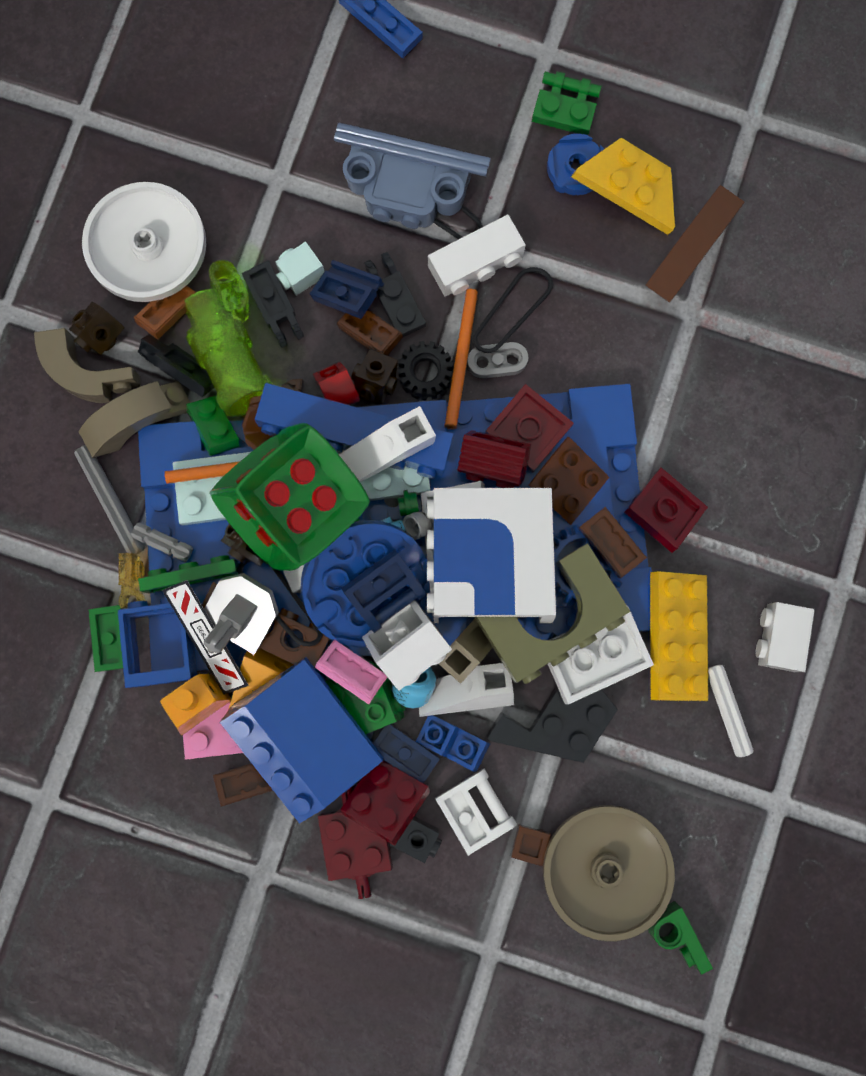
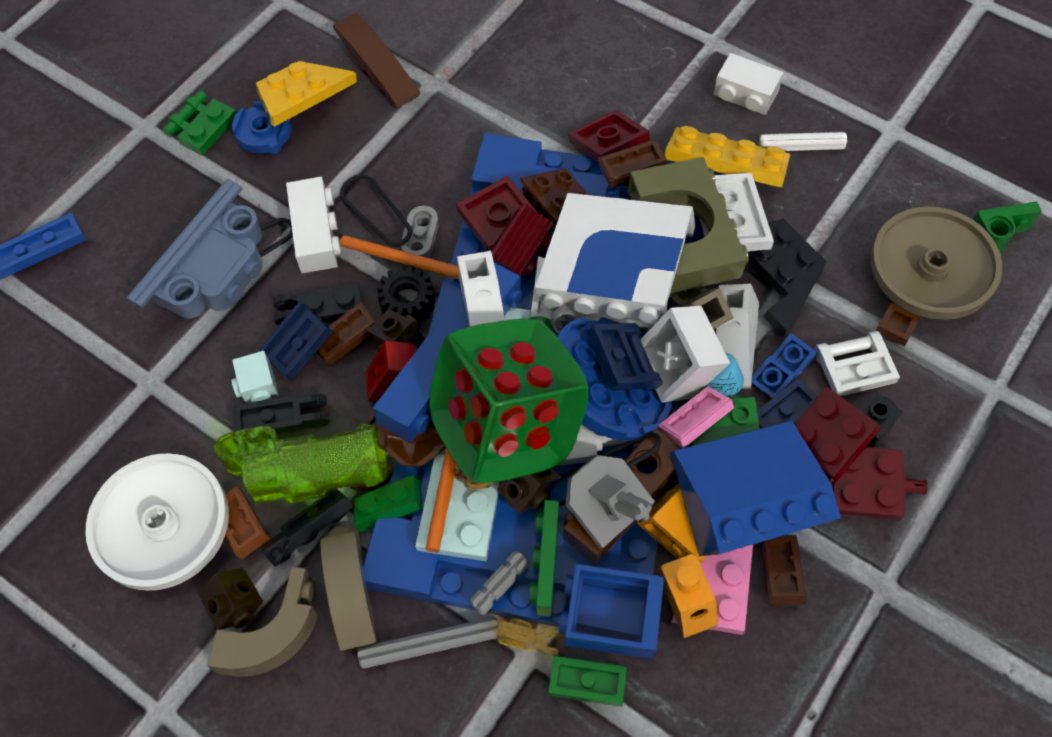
camera: 70 degrees left, 20 degrees down
(198, 627) = (621, 548): sticker -> none

